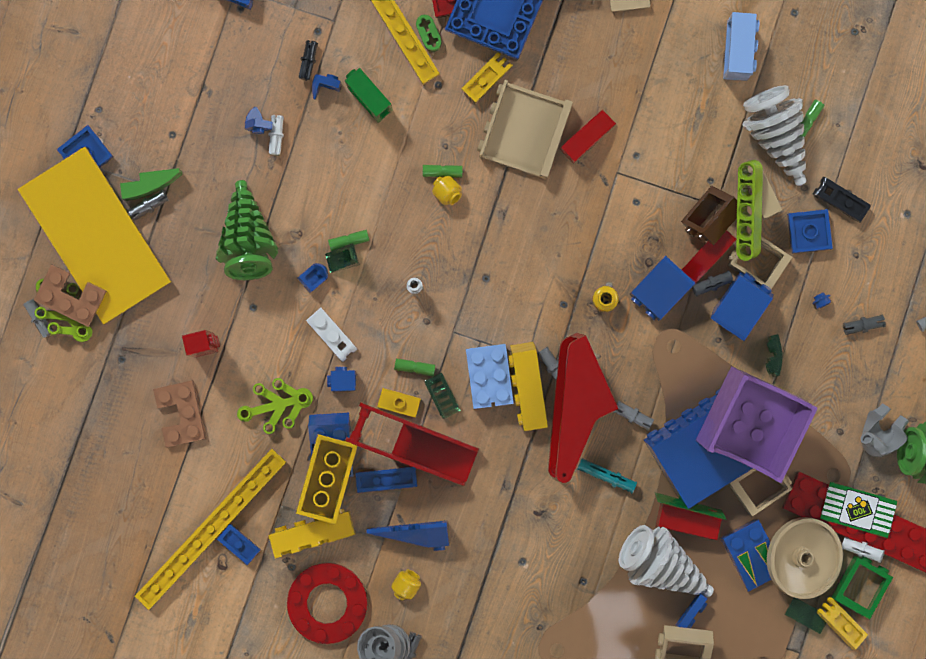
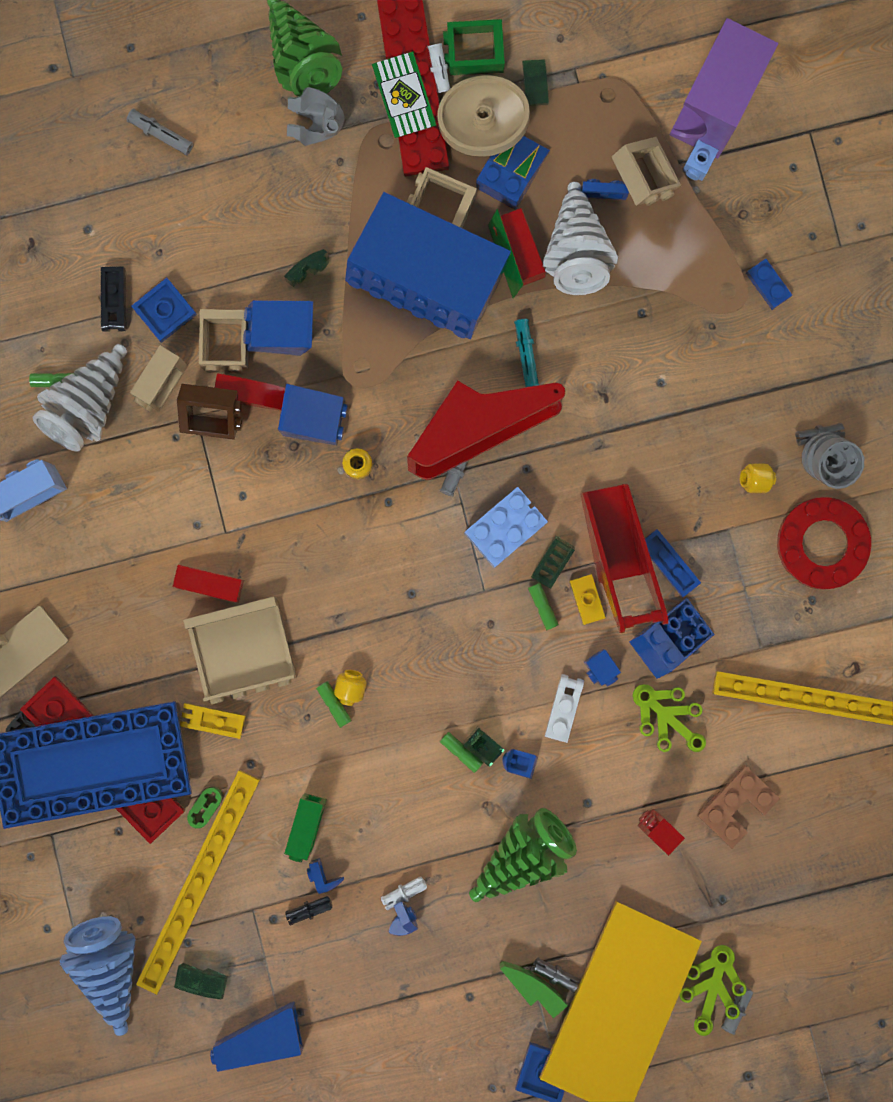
camera: 130 degrees left, 0 degrees up
(52, 296) = (709, 1009): nougat plate -> none
(238, 544) = (825, 665): blue plate -> none
(310, 534) = (770, 601): yellow wedge -> none
(326, 479) = (713, 619): yellow brick -> none
(414, 281) = (471, 657): white pin -> none
(423, 534) = (699, 494): blue wedge -> none
(529, 386) = (490, 483): yellow wedge -> none
(634, 415) = (452, 363): light grey pin -> none
(712, 283) = (274, 370): dark grey pin -> none
(754, 201) = (169, 376): lime beam -> none
(756, 424) = (387, 231): medium lavender container -> none
(821, 300) = (224, 256): blue plate -> none
(842, 623) = (522, 43): yellow hinge -> none
(864, 324) = (222, 202): dark grey pin -> none

